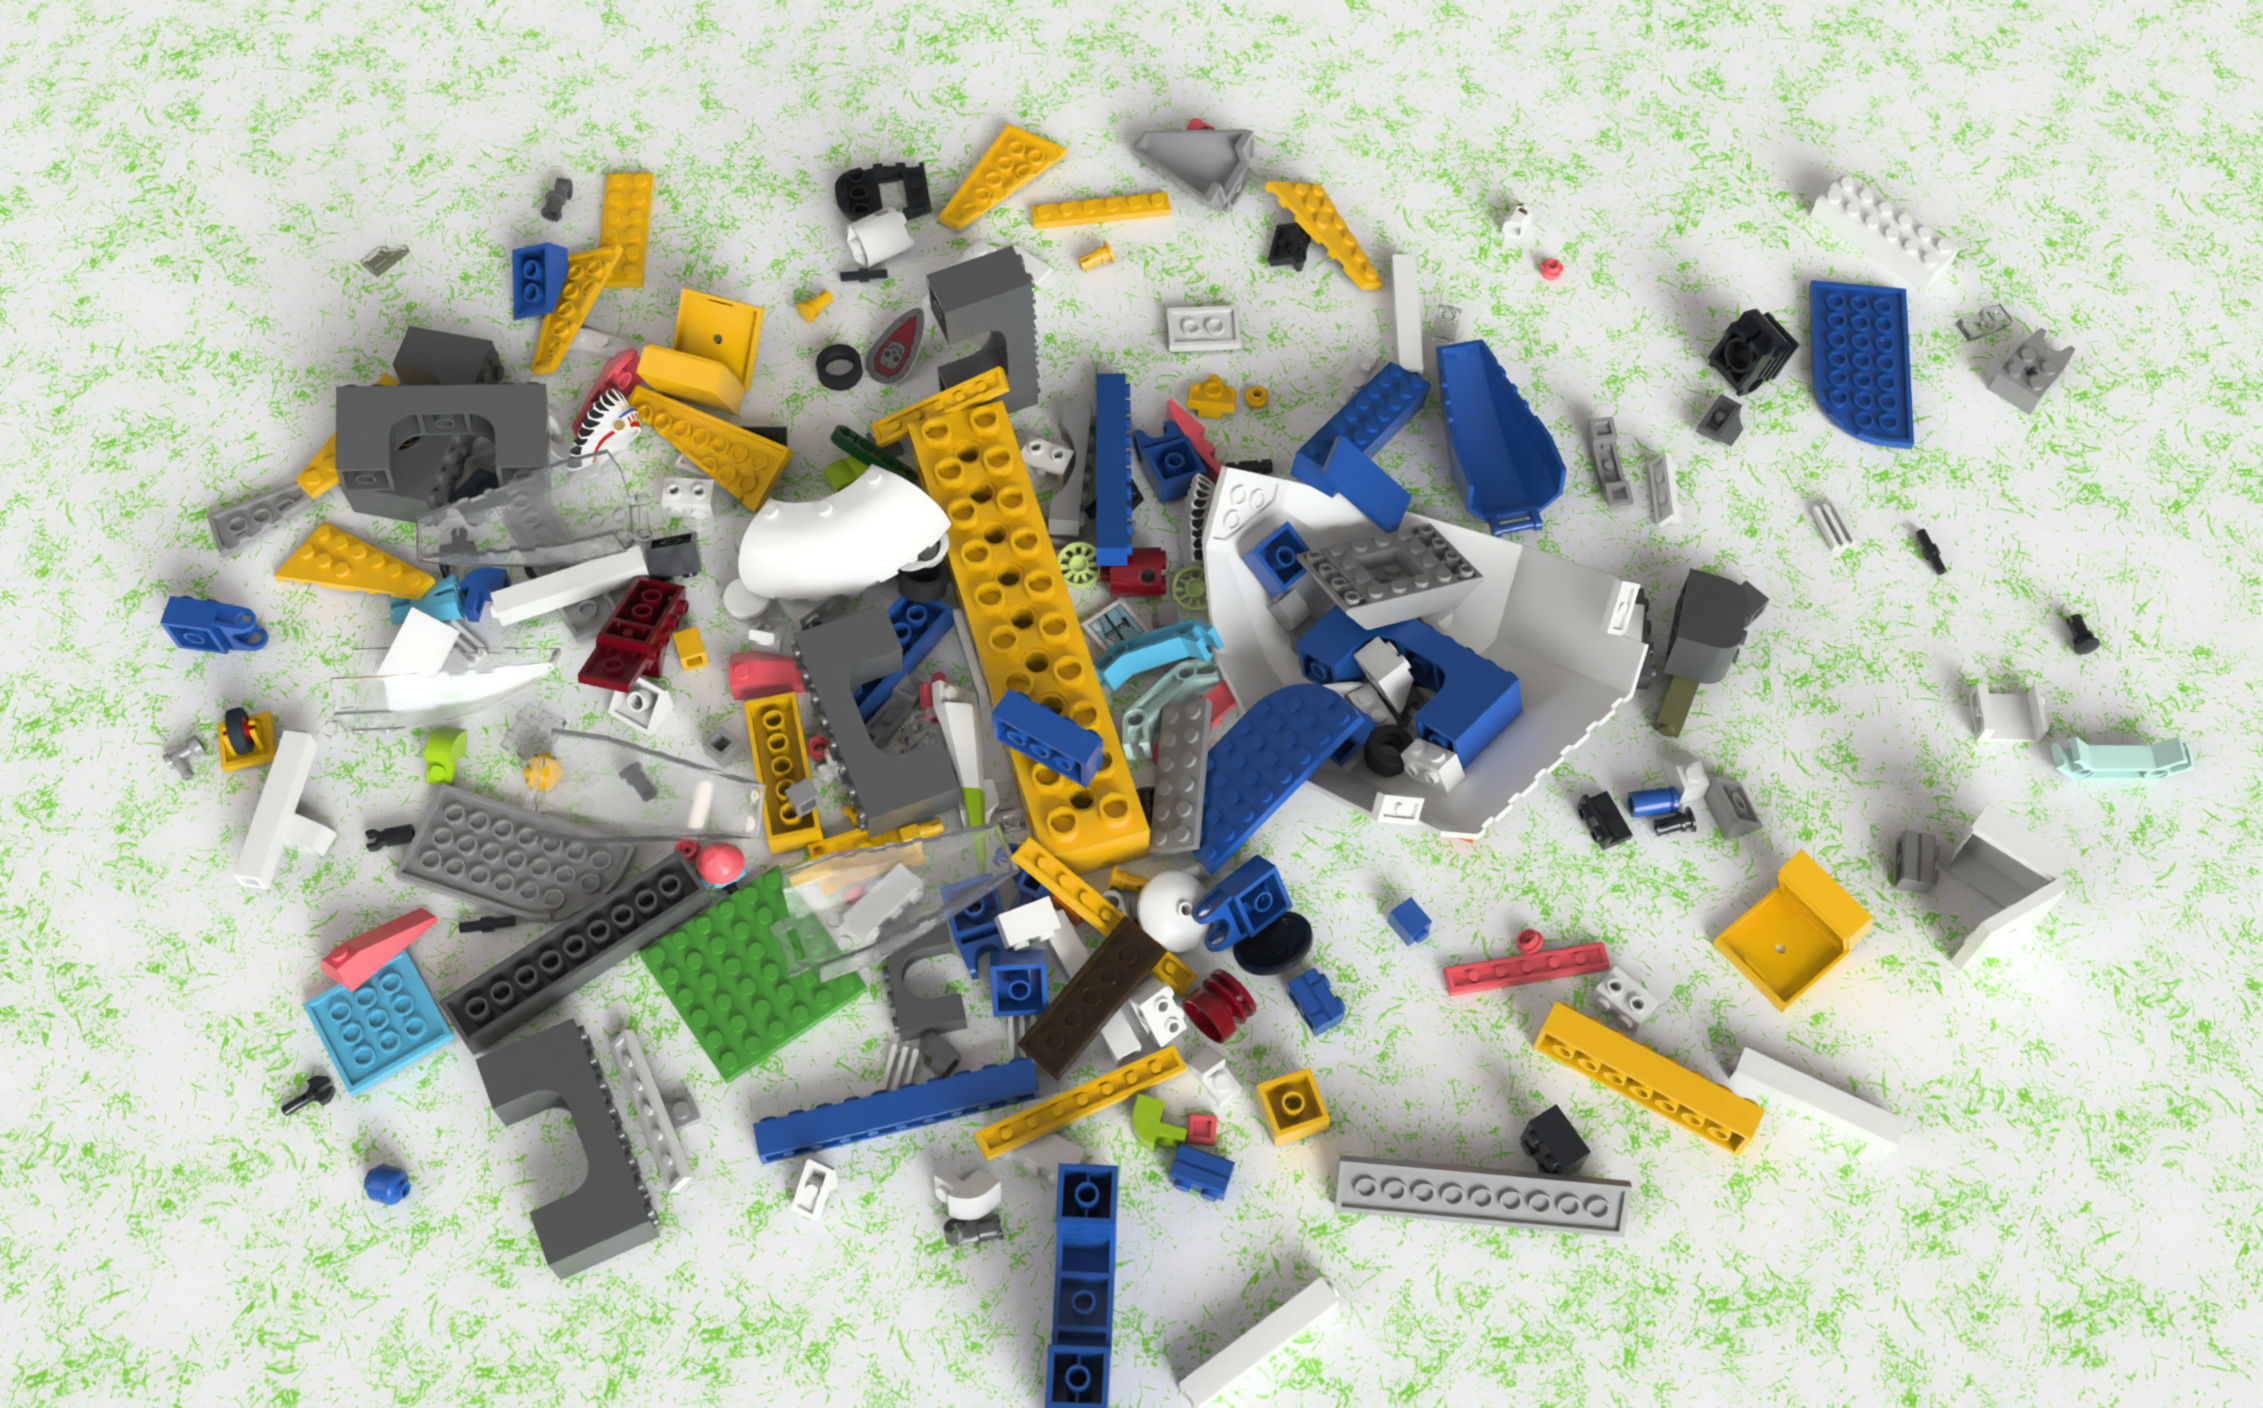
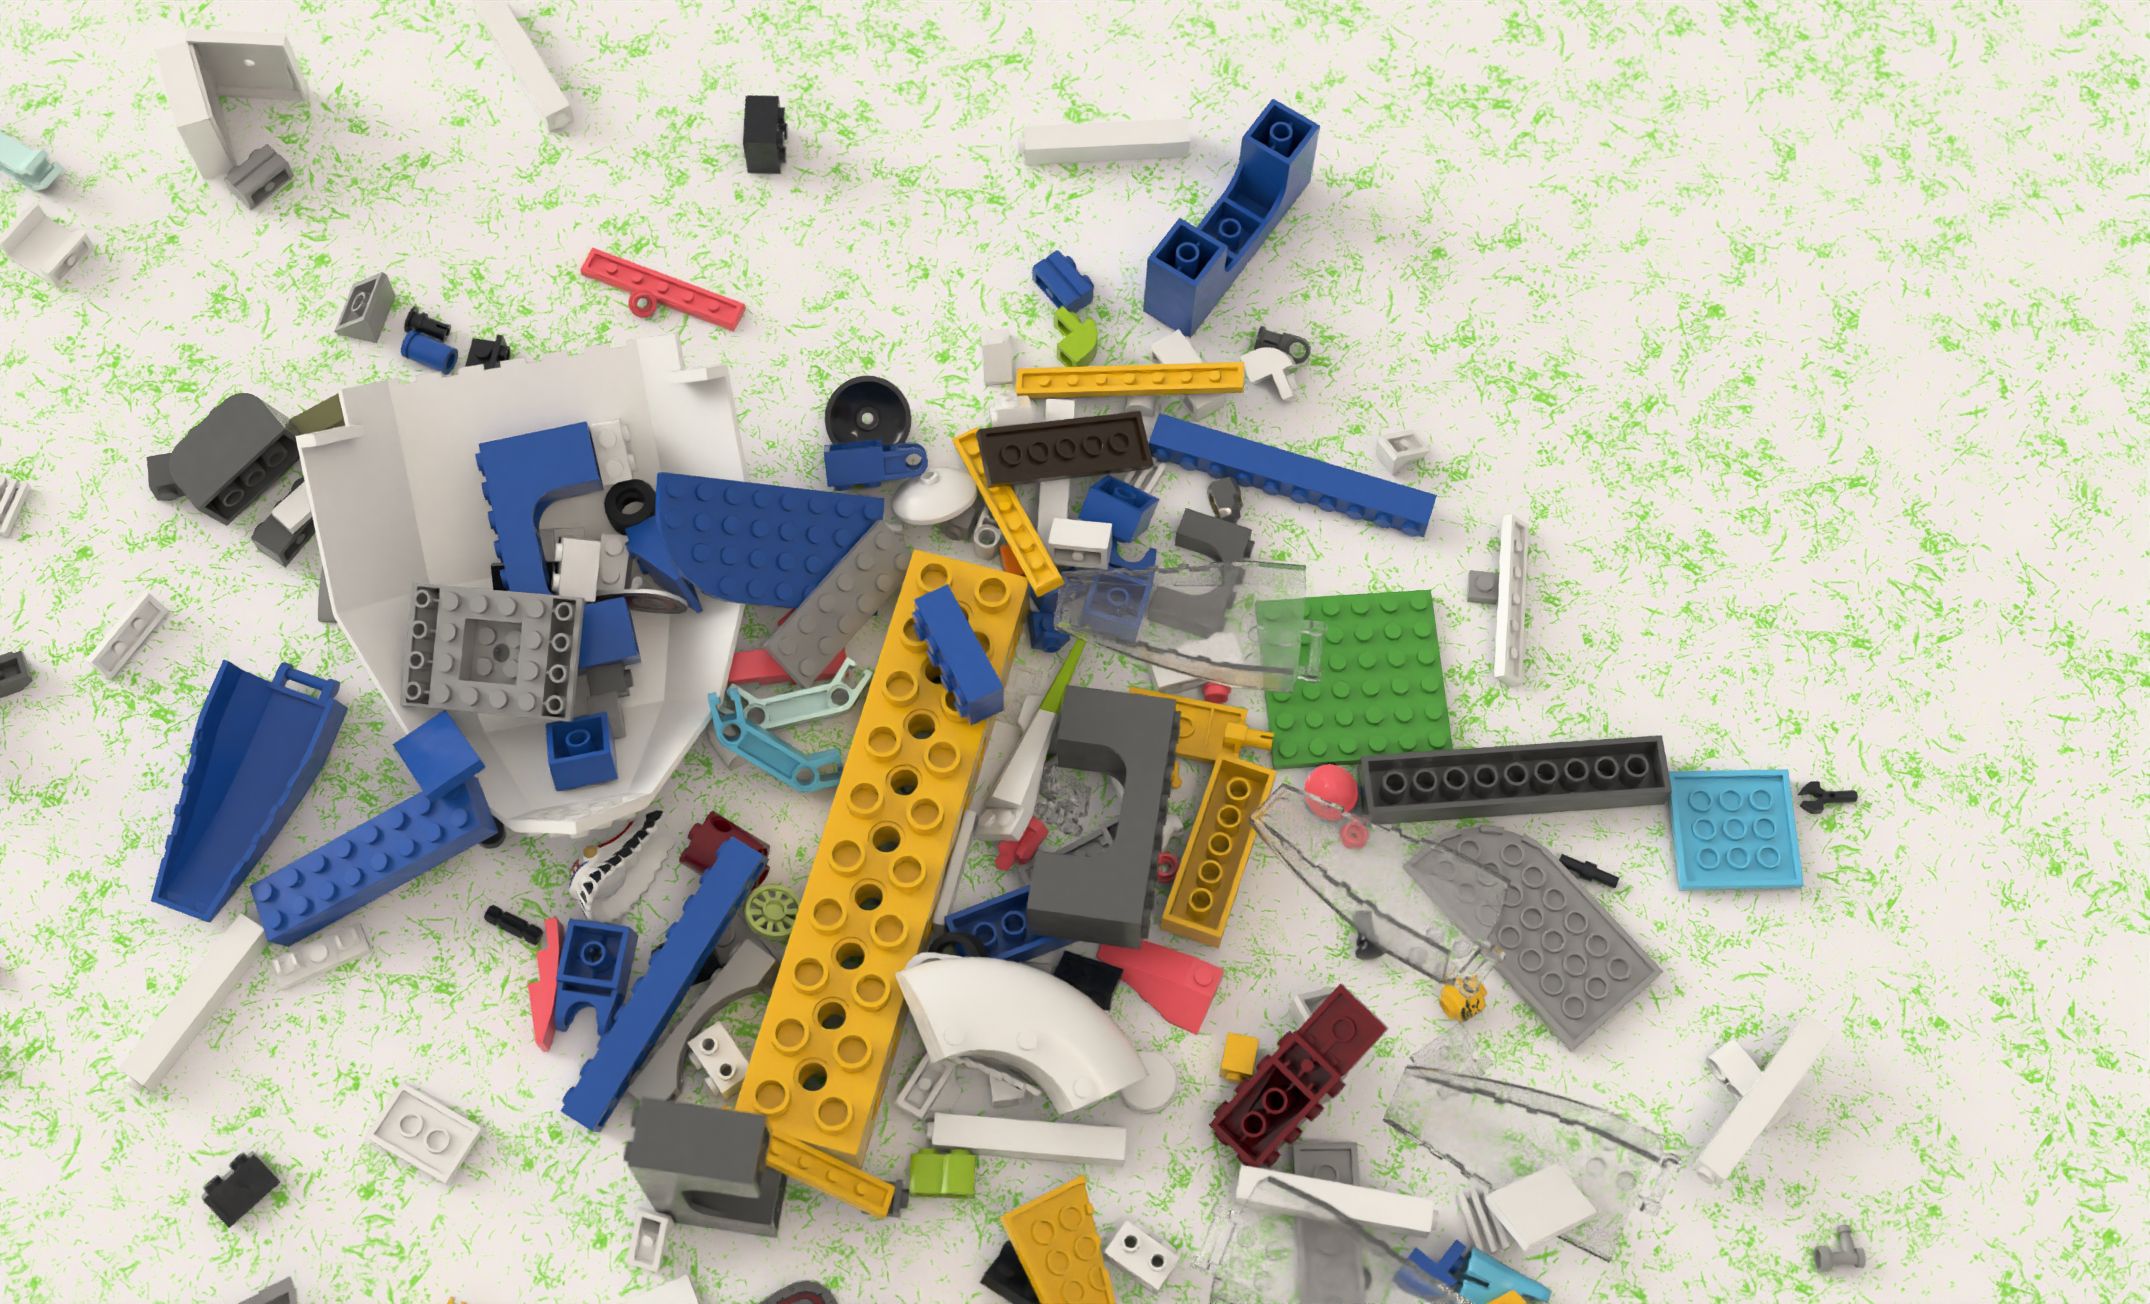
camera: 150 degrees left, 5 degrees up
(246, 739) = (1765, 1229): yellow plate -> none
(367, 953) = (1717, 901): coral wedge -> none
(387, 1184) = (1781, 667): blue head -> none
(390, 837) = (1649, 1024): black bar -> none
(441, 752) = (1561, 1073): lime brick -> none
(611, 1205) = (1581, 665): dark grey arch -> none
(674, 557) = (1194, 1187): black slope -> none
(720, 741) = (1268, 910): light grey plate -> none
(769, 635) = (1148, 1022): white slope -> none
(803, 797) = (1220, 784): light grey plate -> none
(870, 453) = (906, 1170): dark green beam -> none
(904, 1051) = (1260, 536): white tile -> none
(1113, 625) = (787, 819): tile -> none
(1125, 881) = (947, 549): yellow pin -> none
(1146, 798) = (881, 620): black pin -> none
(1166, 615) = (730, 794): light grey plate -> none
(1193, 589) = (676, 814): yellowish green wheel -> none
(1201, 1129) = (1037, 321): coral tile -> none
(1211, 398) = (484, 1033): yellow plate -> none
(1219, 1006) = (955, 391): dark red wheel -> none
(1256, 402) = (440, 1014): yellow plate -> none
(1292, 1107) = (952, 283): yellow brick -> none
(1315, 1001) = (865, 352): blue brick -> none
(1324, 224) = (180, 1186): yellow wing -> none
(1410, 922) = (737, 372): blue brick -> none
(1445, 324) = (162, 970): clear bracket -> none
(1482, 1196) = (855, 138): light grey plate -> none
(1607, 462) = (155, 696): light grey slope -> none
(1624, 1000) = (605, 213): white brick -> none
(1649, 1078) = (645, 140): yellow brick -> none
(1686, 775) = (378, 355): white slope -> none
(1808, 918) = (398, 174): yellow container -> none

